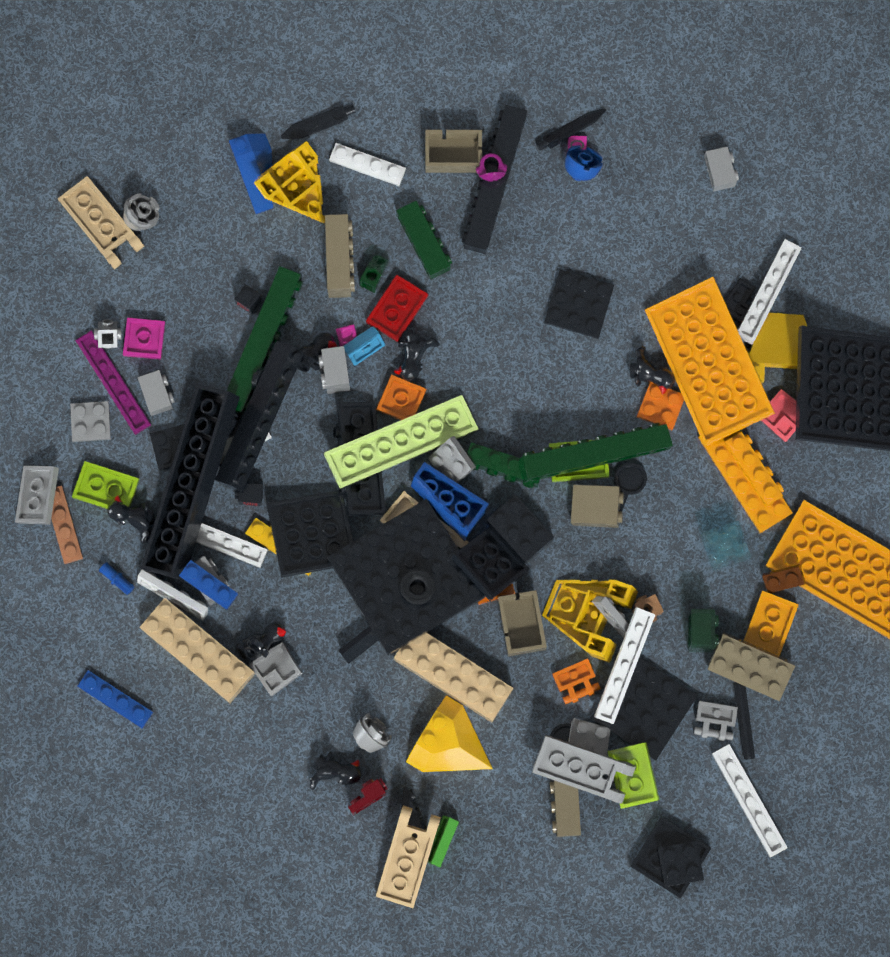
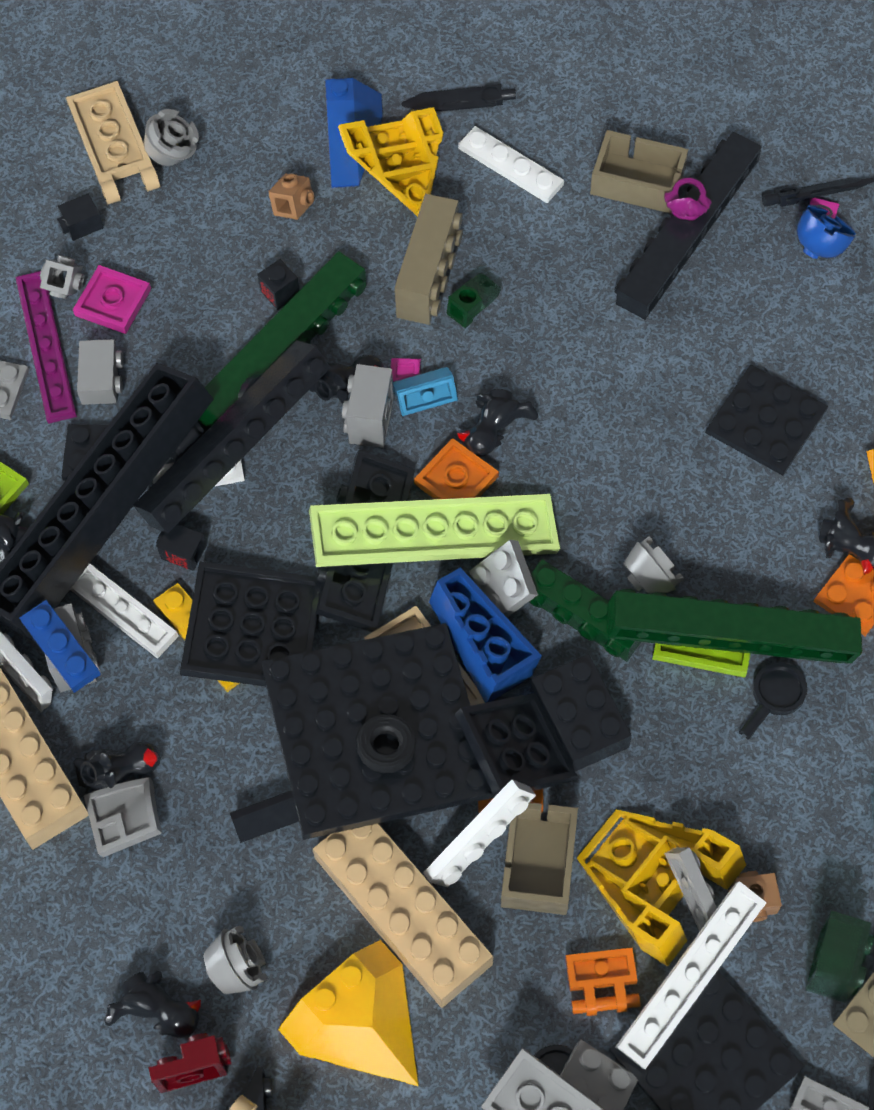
camera: 20 degrees right, 15 degrees down
(101, 286) = (79, 217): none -> black brick
(234, 232) = (291, 196): none -> medium nougat brick
(397, 308) = (491, 353): red plate -> none
(423, 239) = (559, 274): dark green brick -> none
(488, 617) = (479, 834): none -> white plate
(536, 428) = (651, 569): none -> light grey cone
(597, 506) = (714, 711): dark tan brick -> none

